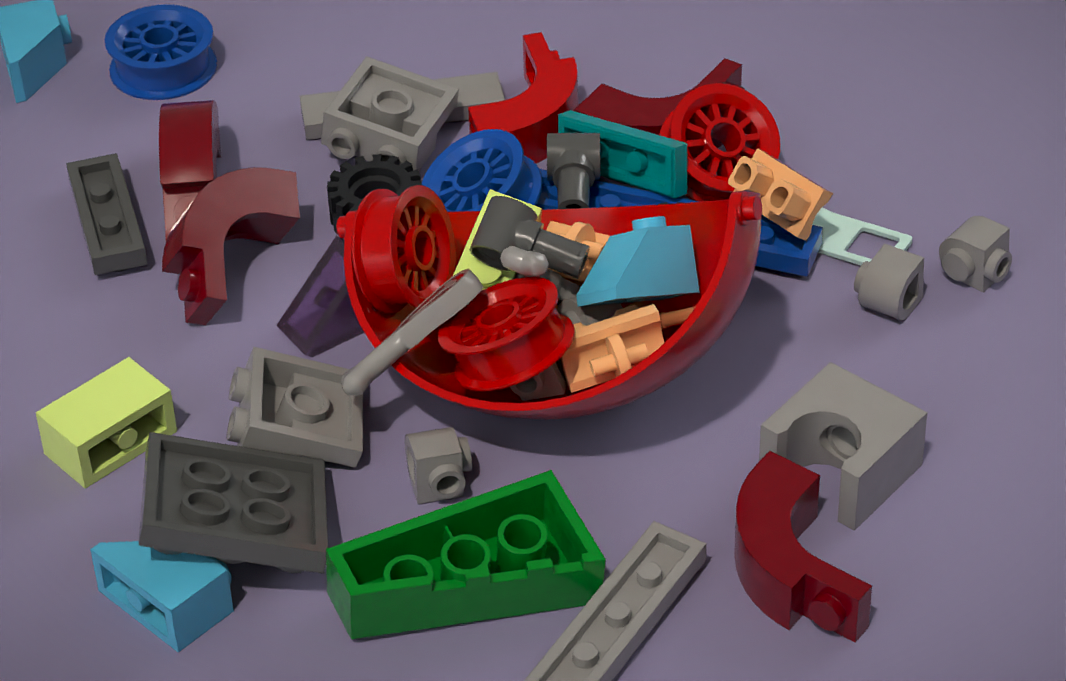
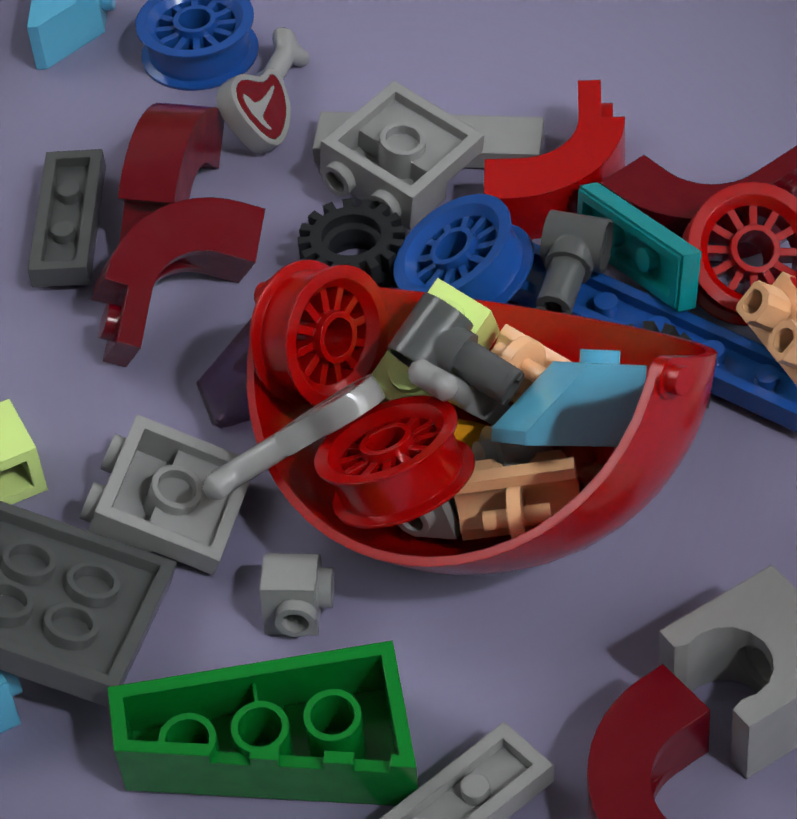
camera: 20 degrees right, 5 degrees up
(242, 92) = (259, 104): none -> light grey piece

